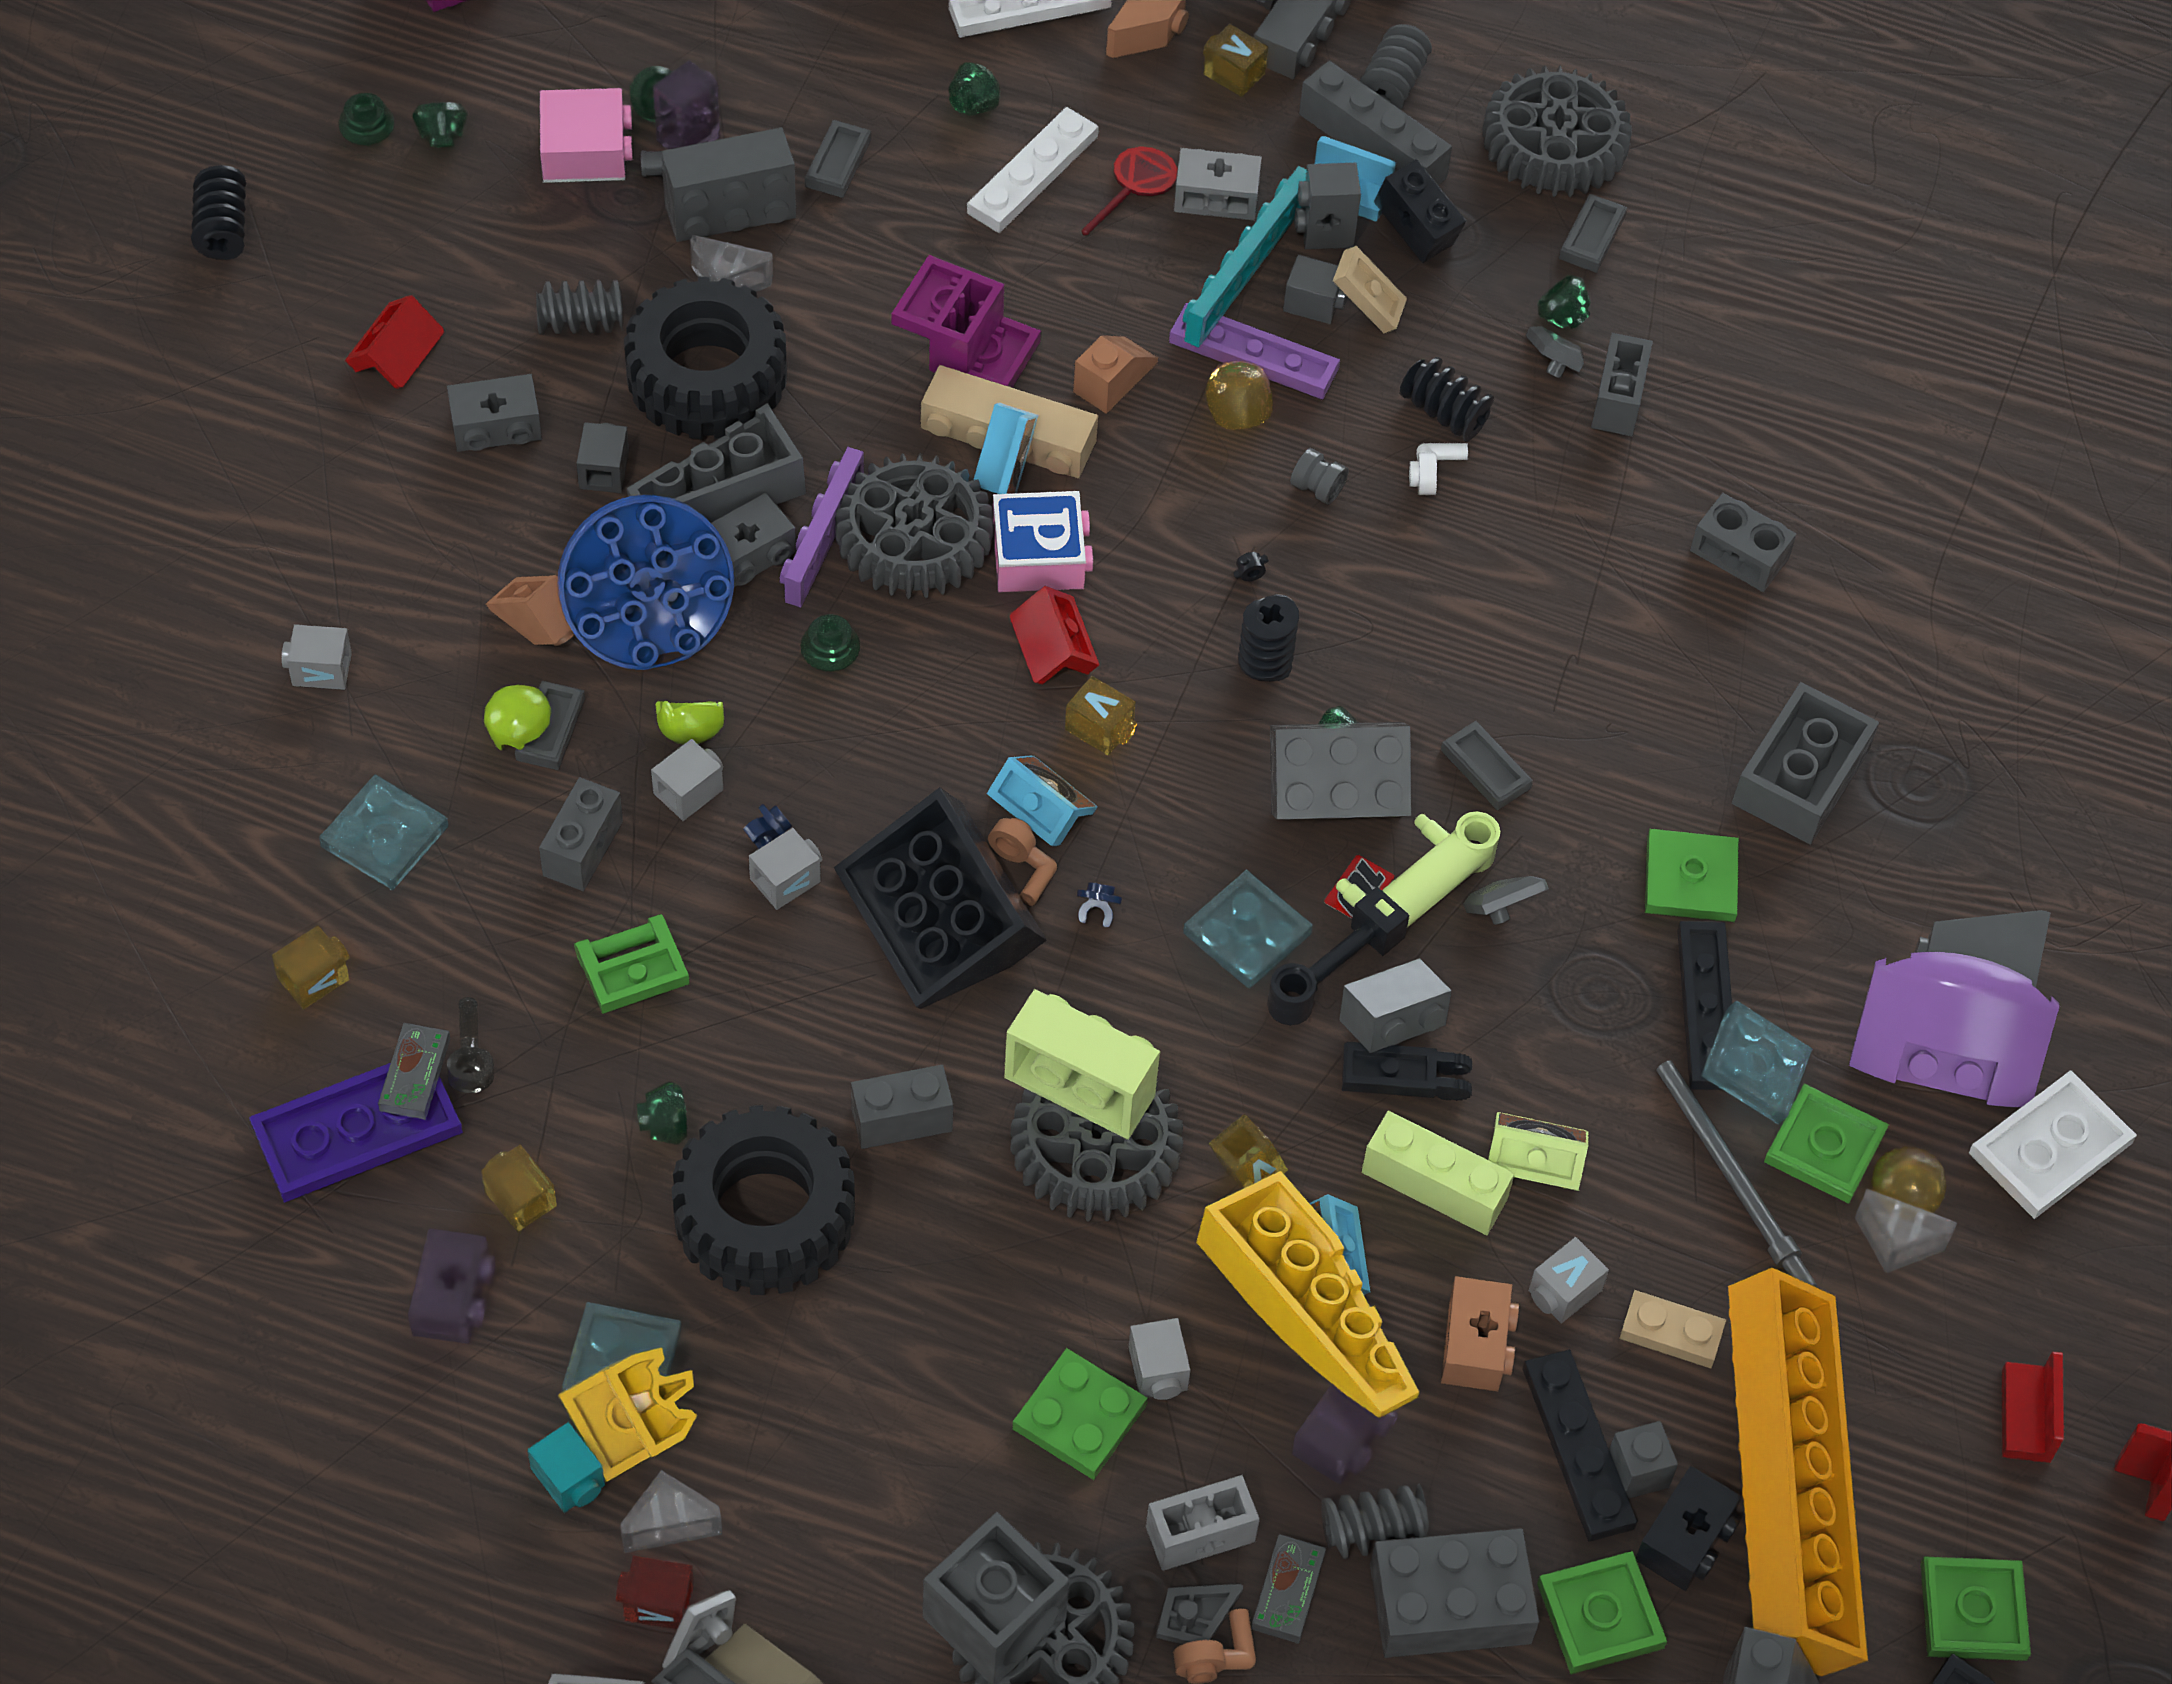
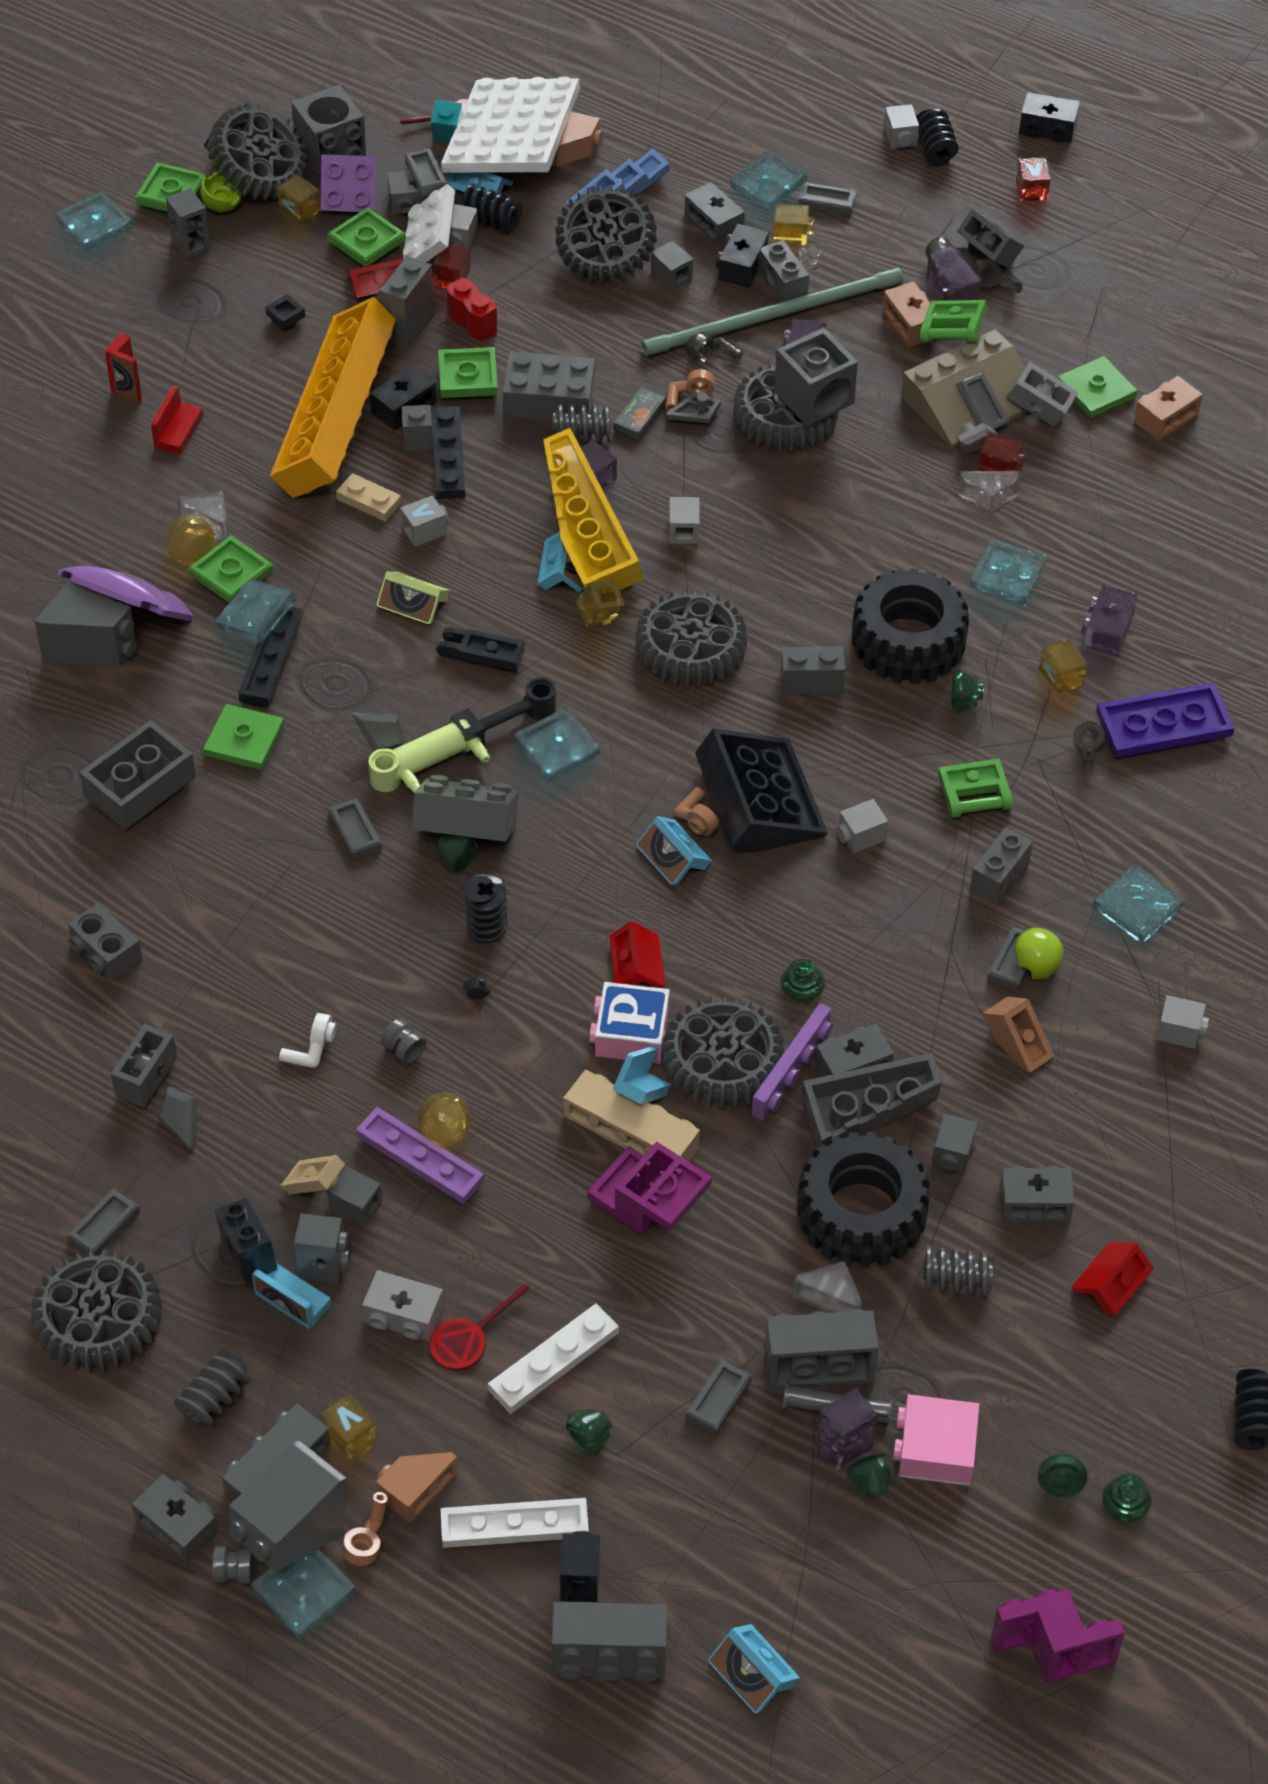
camera: 165 degrees left, 5 degrees down
(311, 966) = (1192, 814): clear yellow brick -> none
(414, 1071) = (1126, 730): dark grey tile -> none
(567, 1468) = (1047, 521): teal brick -> none
(629, 1411) = (1015, 531): yellow plate -> none
(645, 581) = (939, 1020): blue bracket -> none
(688, 779) = (921, 894): light grey brick -> none
(689, 720) = (914, 933): lime hair -> none
(767, 828) = (867, 855): dark blue plate -> none
(1080, 1413) = (737, 510): bright green plate -> none
(1081, 1063) = (698, 630): yellowish green brick -> none
(1099, 896) = (652, 776): dark blue plate -> none
(1101, 716) = (619, 892): clear yellow brick -> none
(1110, 370) = (536, 1155): nougat slope -> none
(1202, 1522) = (683, 432): light grey brick -> none
(1242, 263) = (394, 1227): teal plate -> none
(1365, 876) = (470, 768): sticker -> none
(1369, 122) = (253, 1332): dark grey brick -> none
(1395, 1005) = (477, 670): dark grey brick -> none
(1437, 1172) = (483, 584): yellowish green brick -> none
(1446, 398) = (282, 1083): black piece -> none
(1473, 1309) = (488, 503): nougat brick -> none
(1565, 303) = (158, 1150): clear green cone -> none
(1782, 1248) = (284, 524): dark grey bar -> none
(1975, 1608) = (257, 344): bright green plate -> none
(2052, 1144) = (95, 542): white plate -> none

